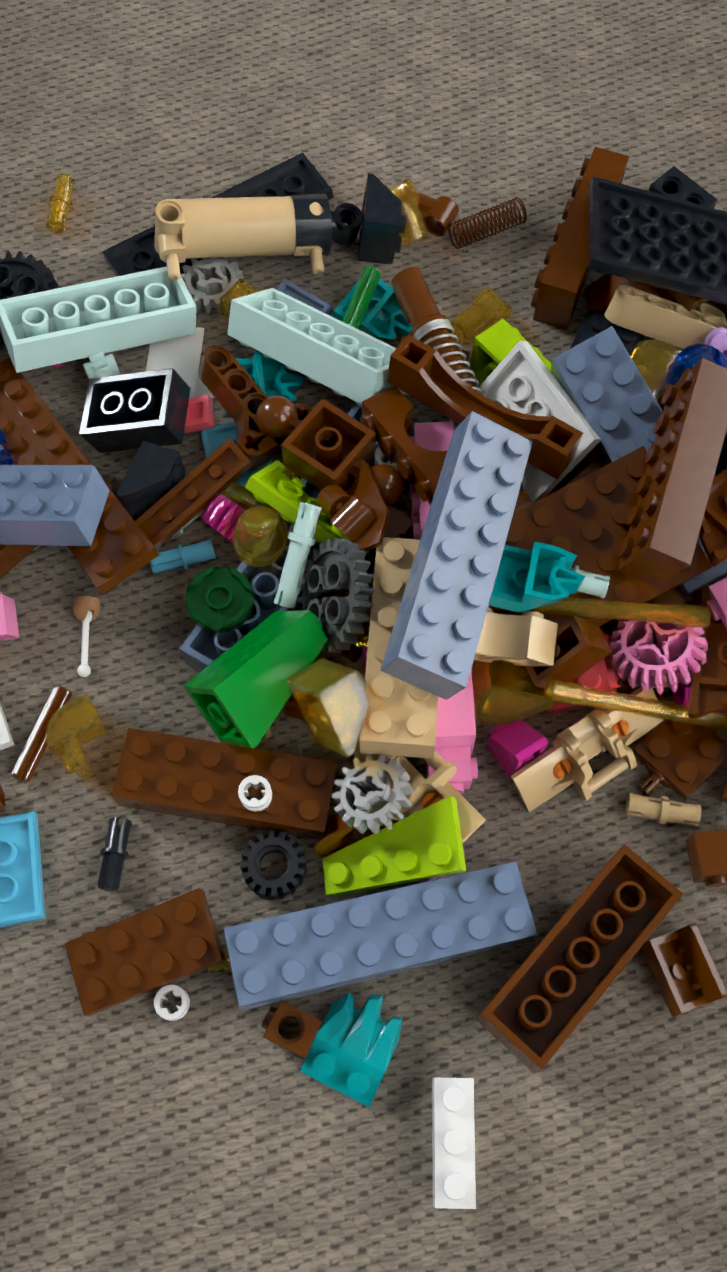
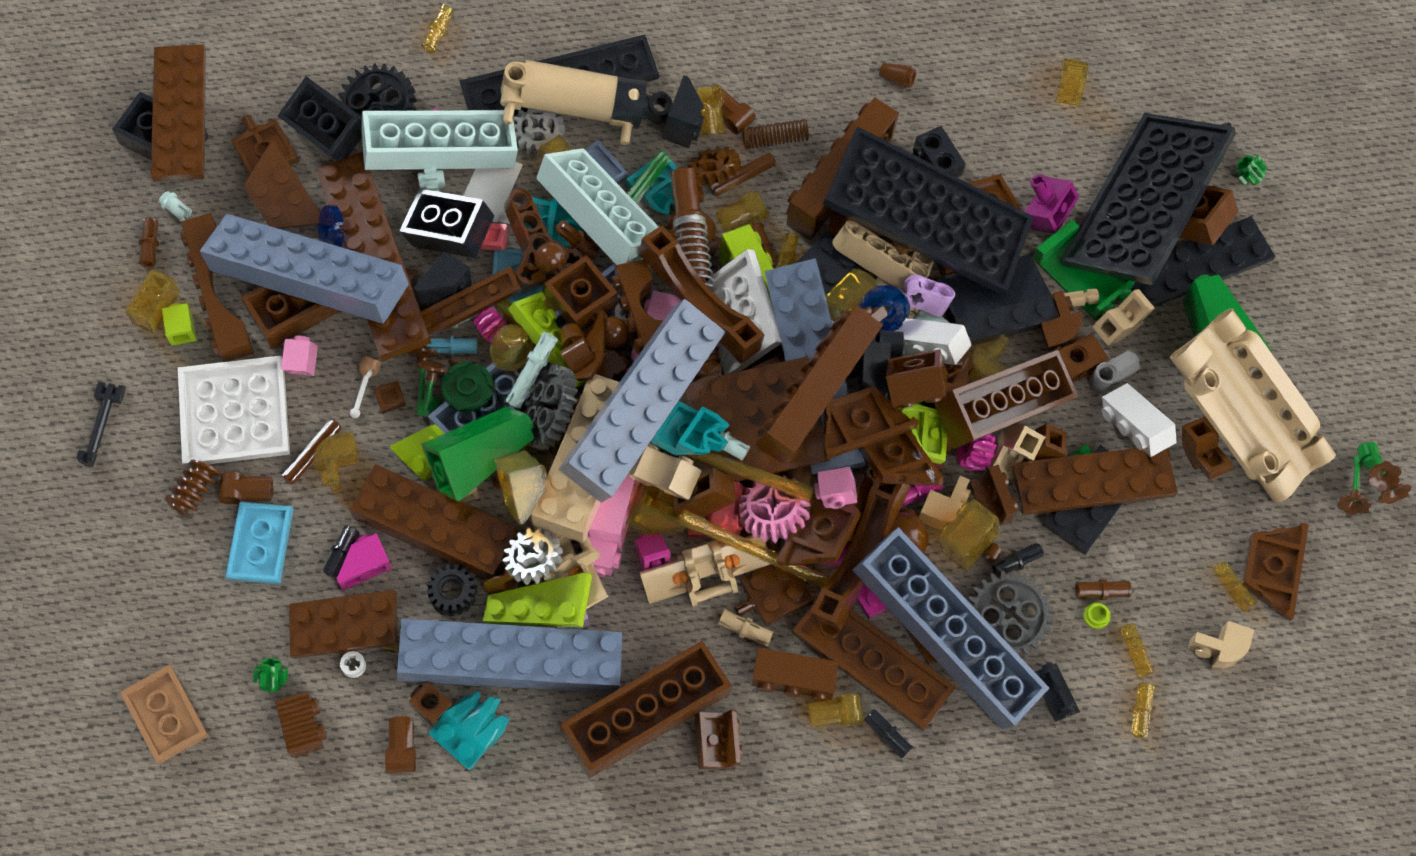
camera: 10 degrees right, 0 degrees up
(64, 1051) = (270, 674): none -> green gear
(122, 639) = (389, 397): none -> reddish brown tile
(123, 1109) = (300, 724): none -> reddish brown brick
(147, 859) = (363, 562): none -> dark pink slope
(173, 634) = (426, 403): none -> plant
(173, 701) = (412, 453): none -> lime wing
(256, 782) = (454, 526): white bush -> none
(271, 1110) = (400, 754): none -> reddish brown piece
(295, 390) = (577, 239): none -> reddish brown axle
(439, 268) = (716, 165): none -> reddish brown gear
(453, 1143) = (517, 806): white brick -> none
(464, 276) = (747, 172): none -> reddish brown axle
(548, 342) = (787, 253): none -> clear yellow axle
(600, 129) = (898, 74): none -> reddish brown cone

